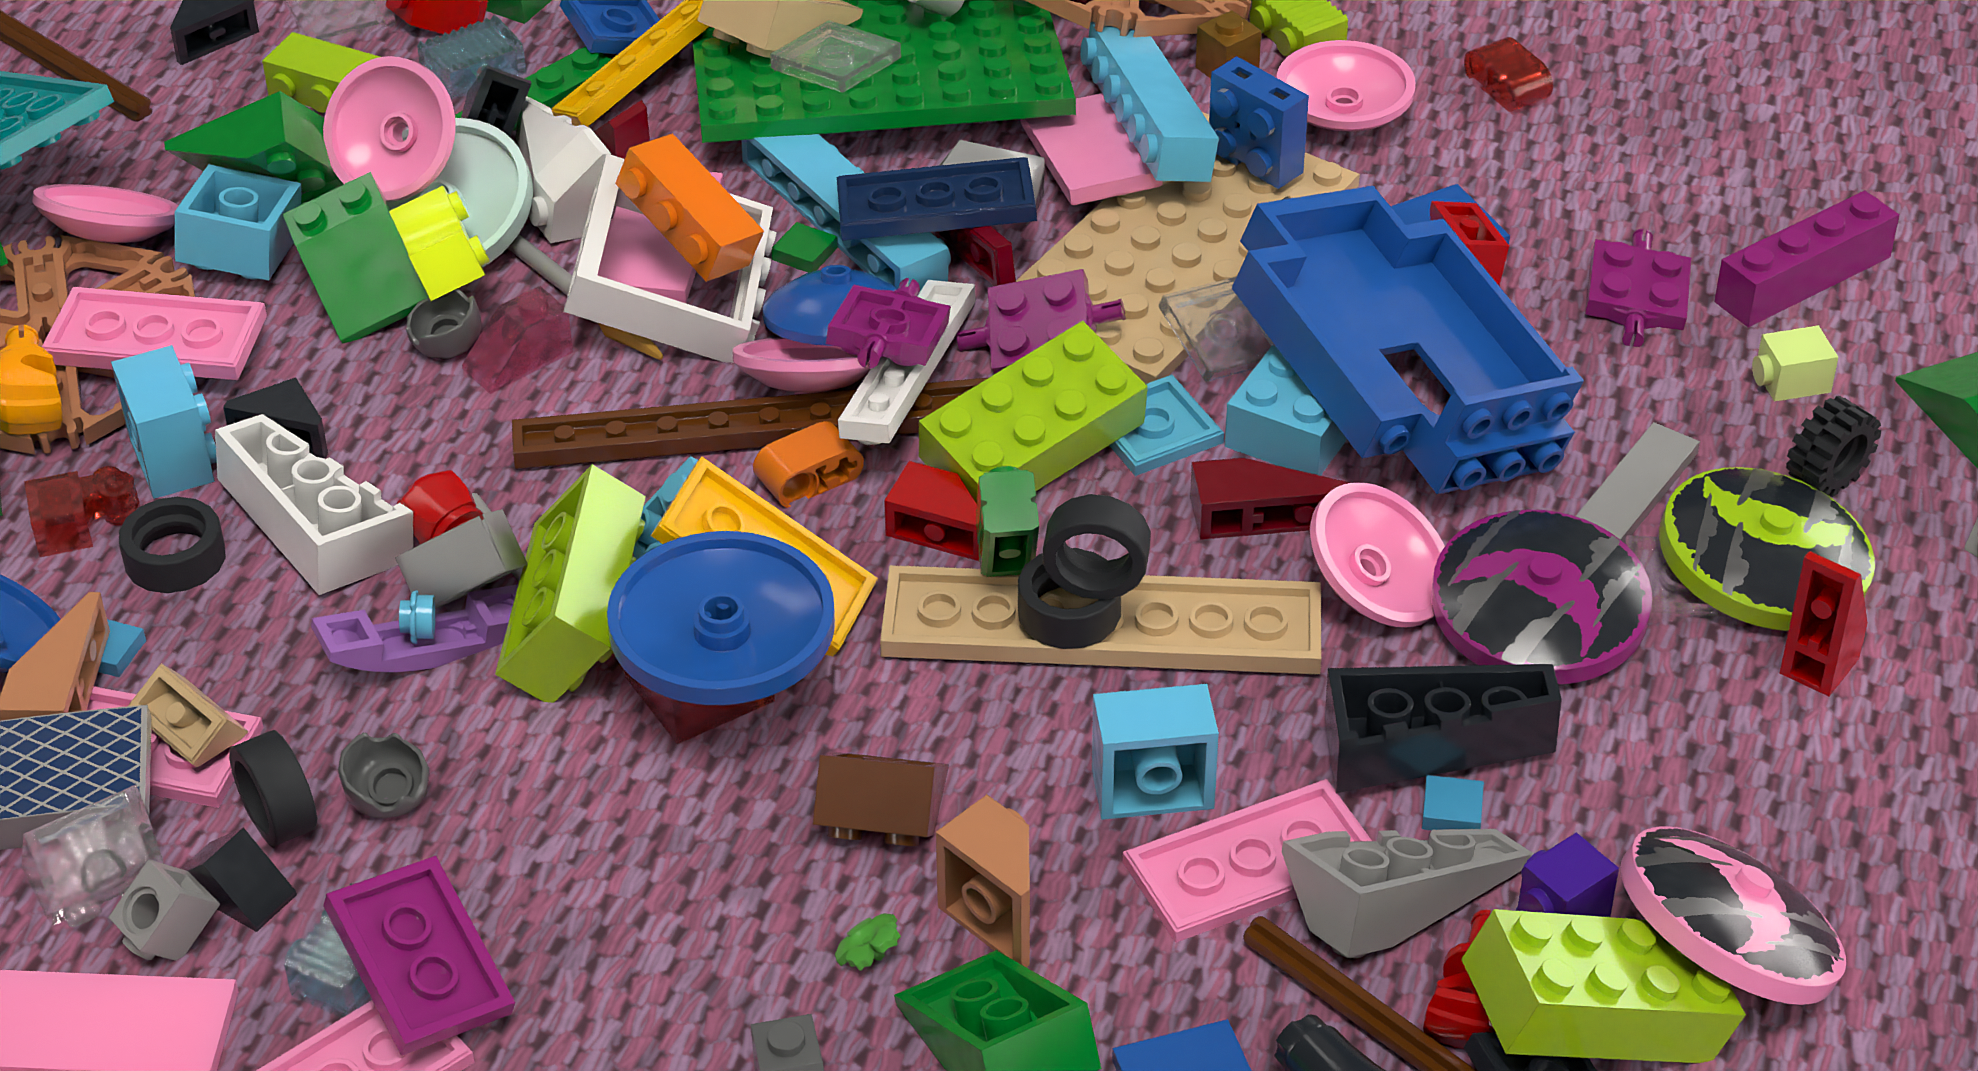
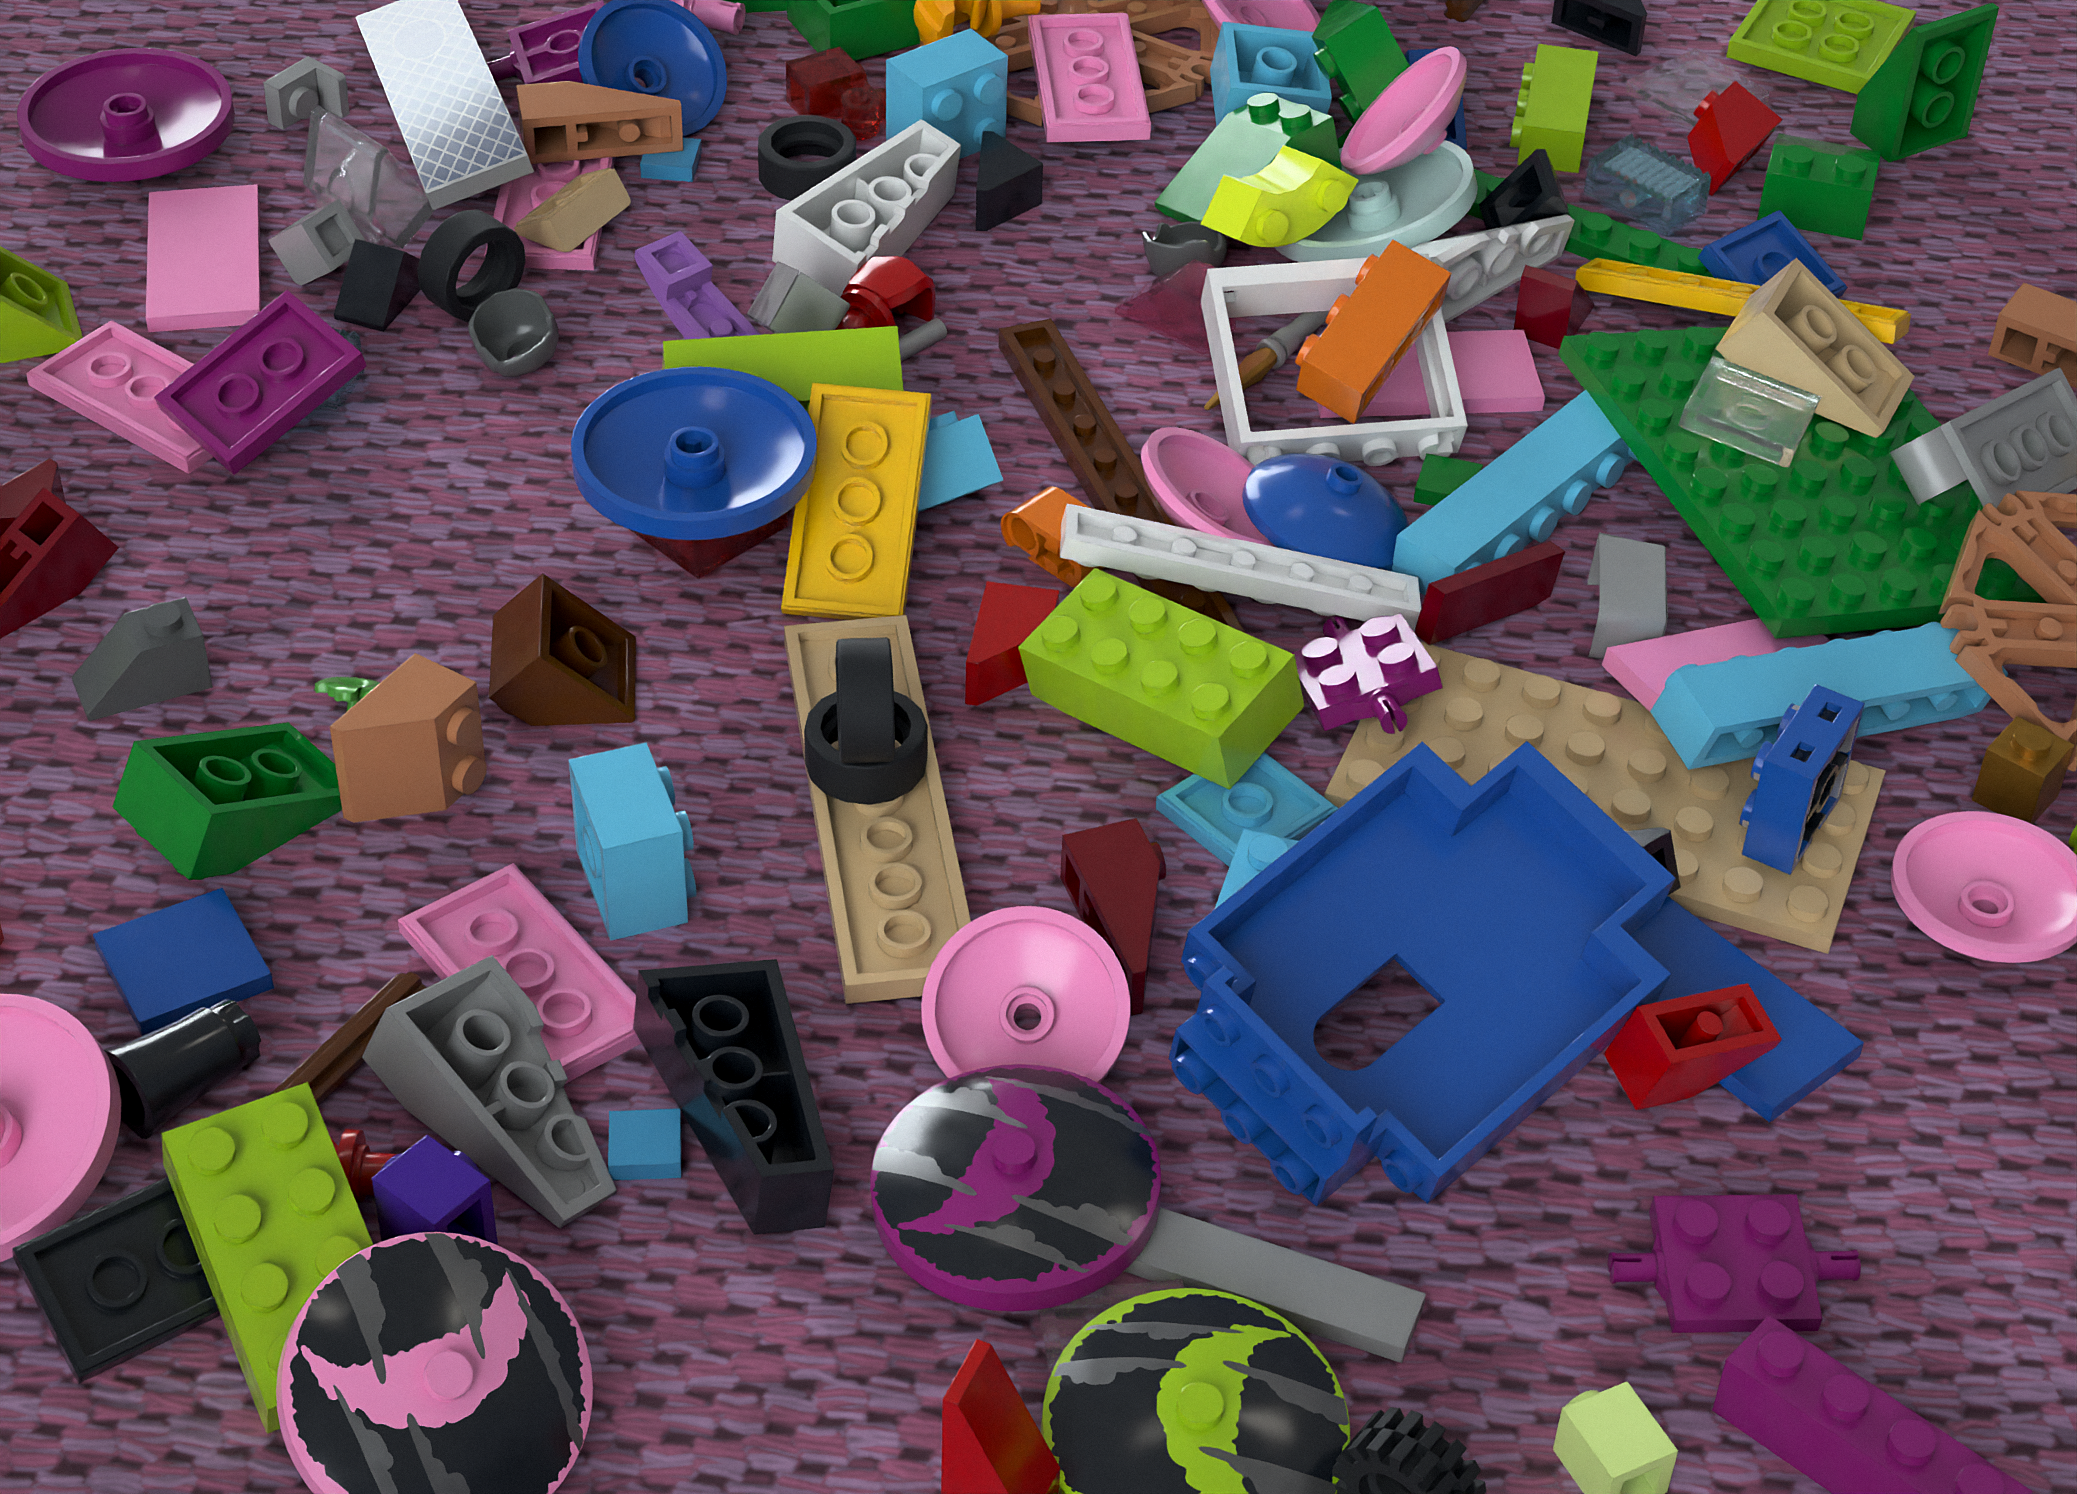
camera: 75 degrees right, 0 degrees up
(418, 616) = (724, 307): medium azure plate -> none
(888, 325) = (1248, 517): magenta plate -> none
(935, 198) = (1516, 531): dark blue tile -> none
(1006, 521) = (929, 652): green brick -> none

